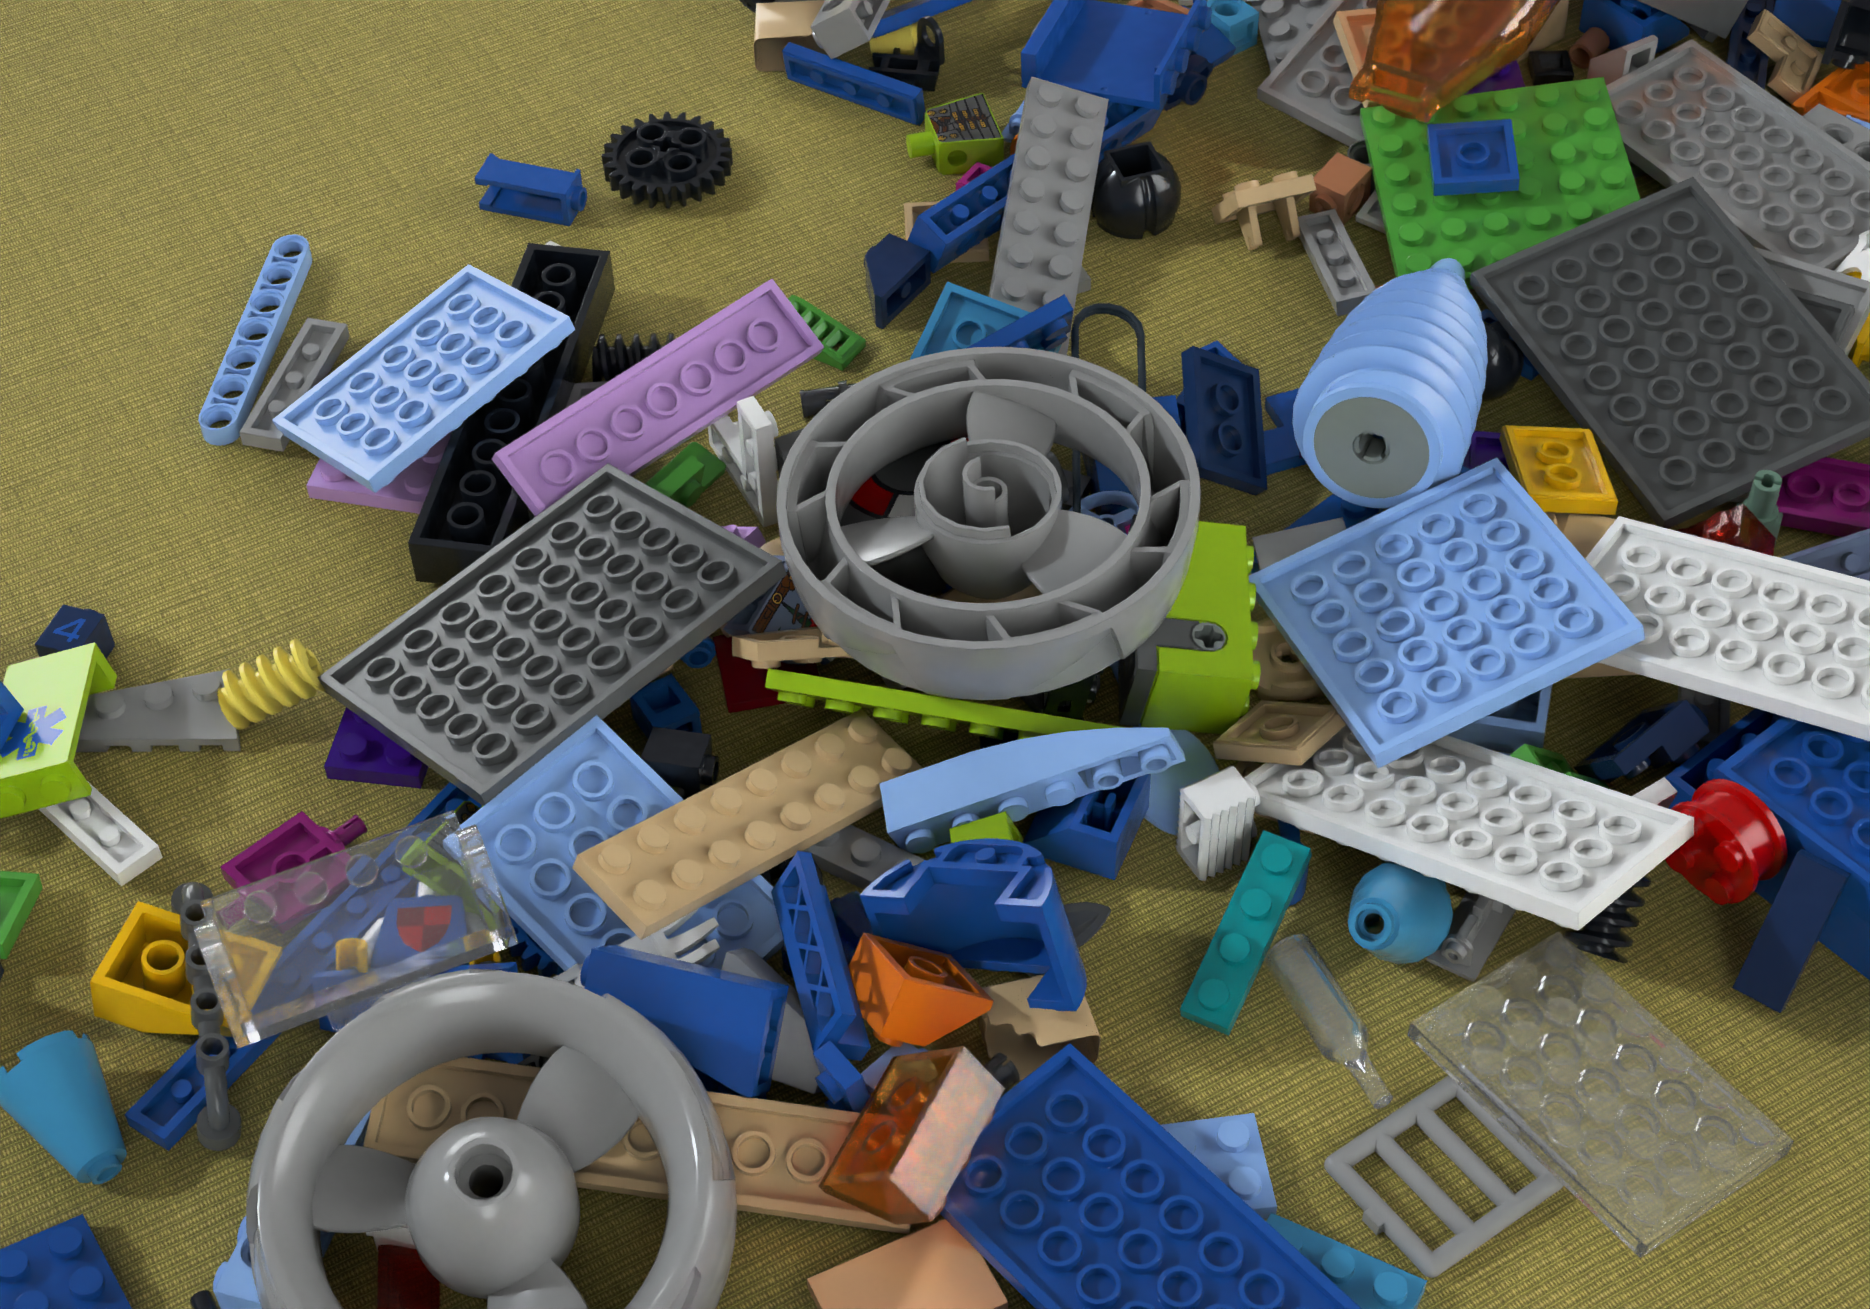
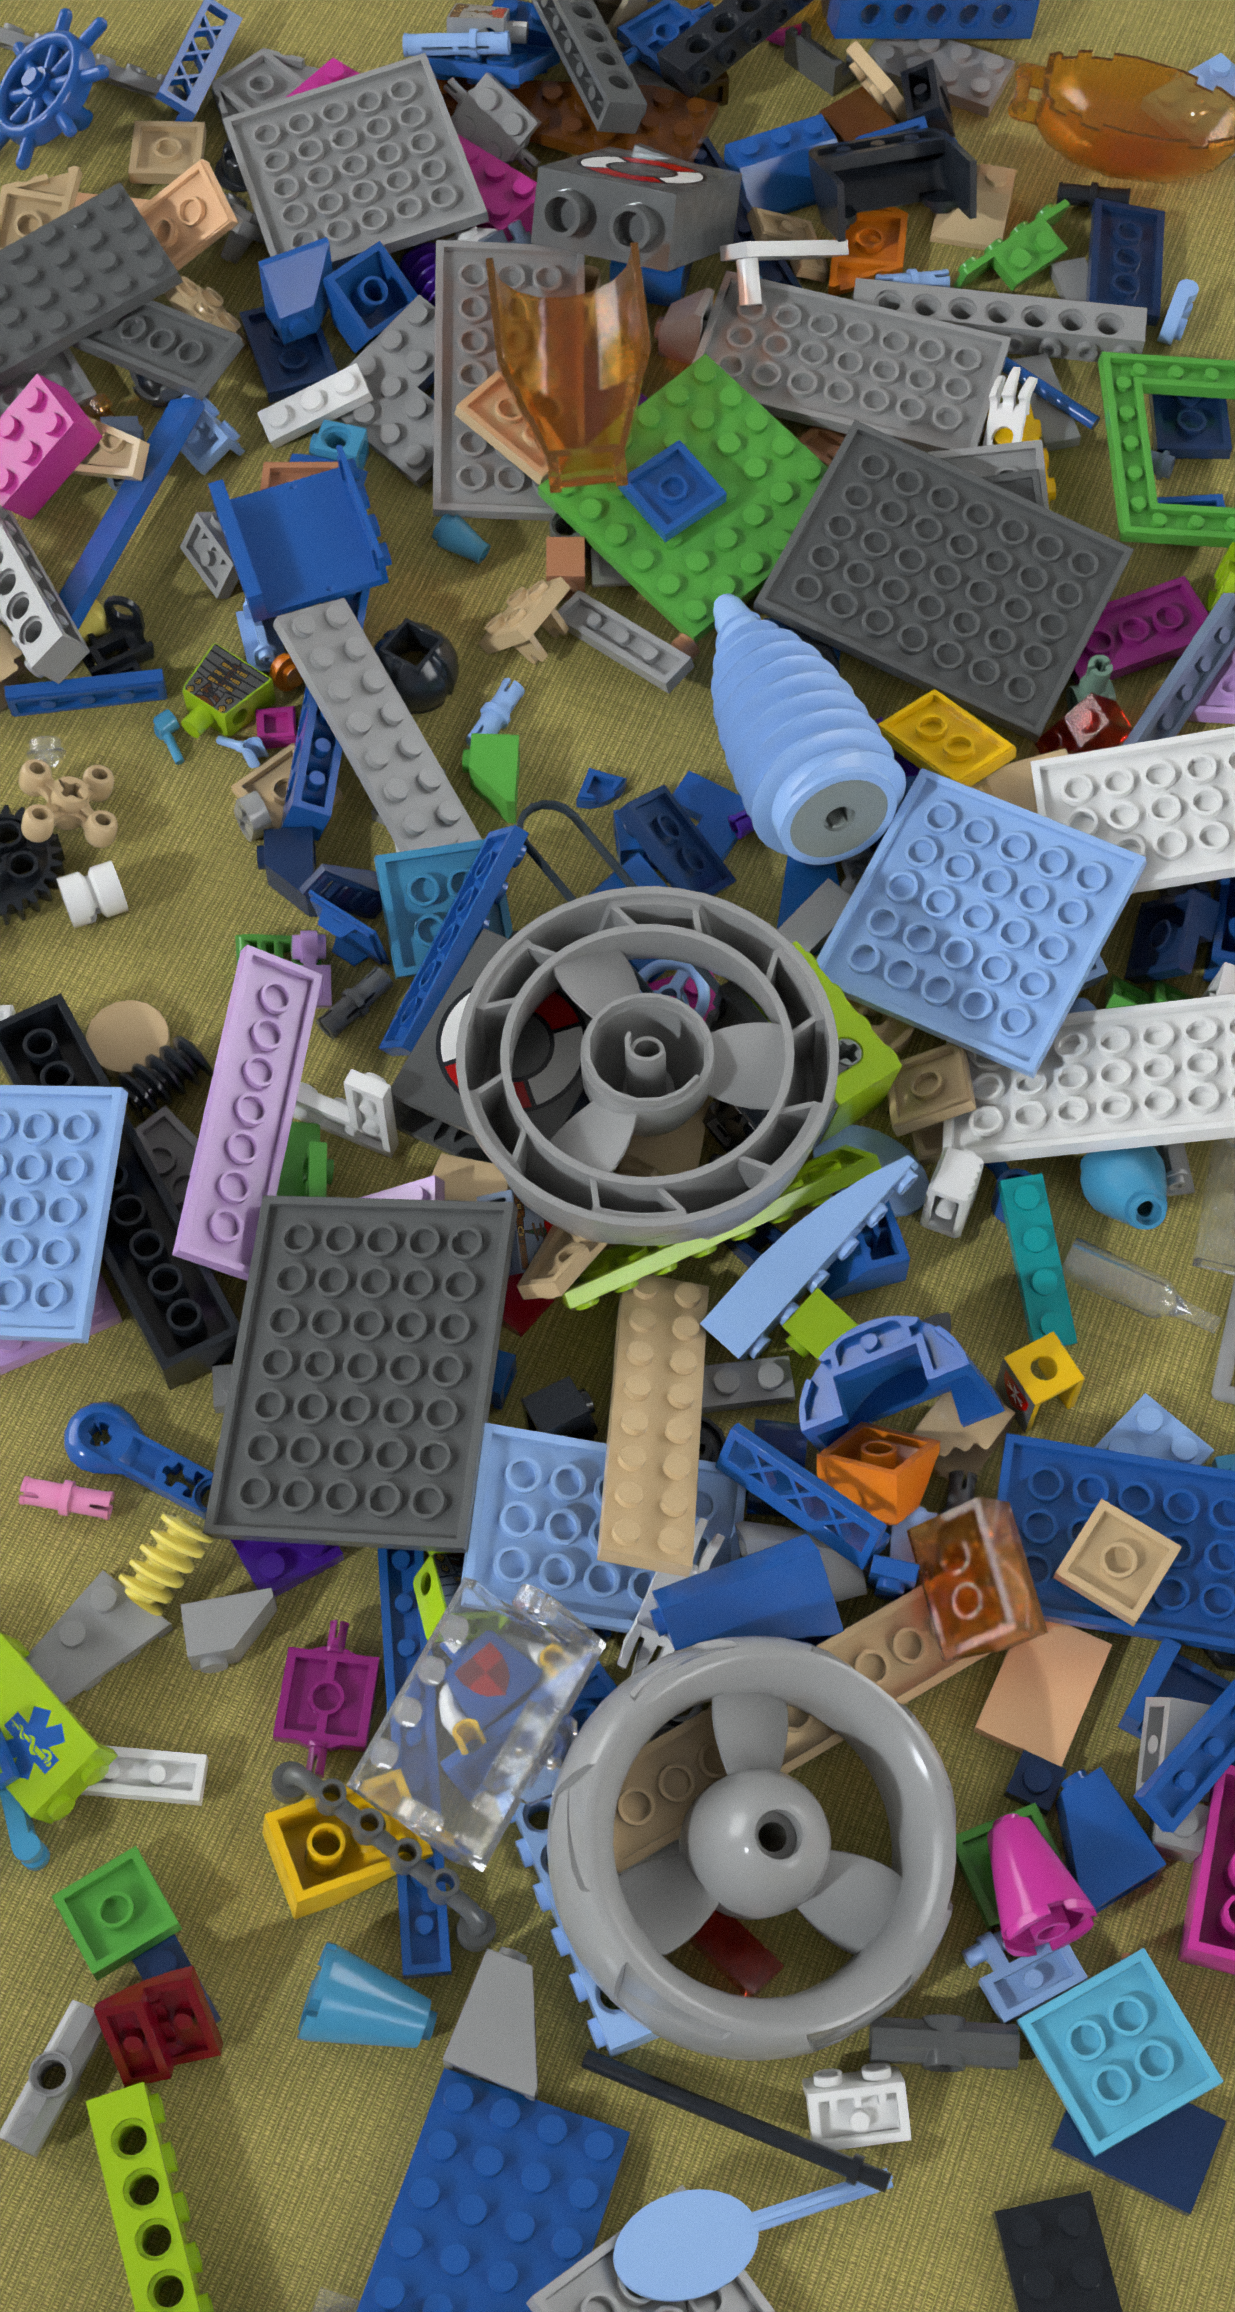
camera: 40 degrees left, 15 degrees up
(157, 1213) = (498, 2026): none -> light grey slope
(259, 603) = (66, 1498): none -> bright pink pin
(272, 767) = (225, 1627): none -> light grey slope
(335, 602) = (133, 1455): none -> blue beam
(644, 316) = (126, 1035): none -> tan tile
(708, 211) = (92, 894): none -> white wheel
(758, 142) = (67, 803): none -> tan gear
(783, 107) = (46, 749): none -> clear plate
(825, 369) = (310, 948): none -> lavender plate
(870, 313) = (353, 938): none -> blue piece
(889, 215) = (252, 816): none -> light grey beam
(893, 139) = (164, 726): none -> dark azure hand
(904, 313) = (351, 889): none -> dark blue slope
(942, 185) = (250, 748): none -> light blue hand
(1063, 1213) = (1117, 1562): none -> tan plate
(1137, 289) = (494, 771): none -> bright green slope
(1167, 1023) = (1025, 1392): none -> yellow piece
(1173, 264) = (496, 713): none -> light blue pin
(1268, 127) = (458, 537): none -> dark azure cone
(1715, 21) = (750, 252): none -> white piece

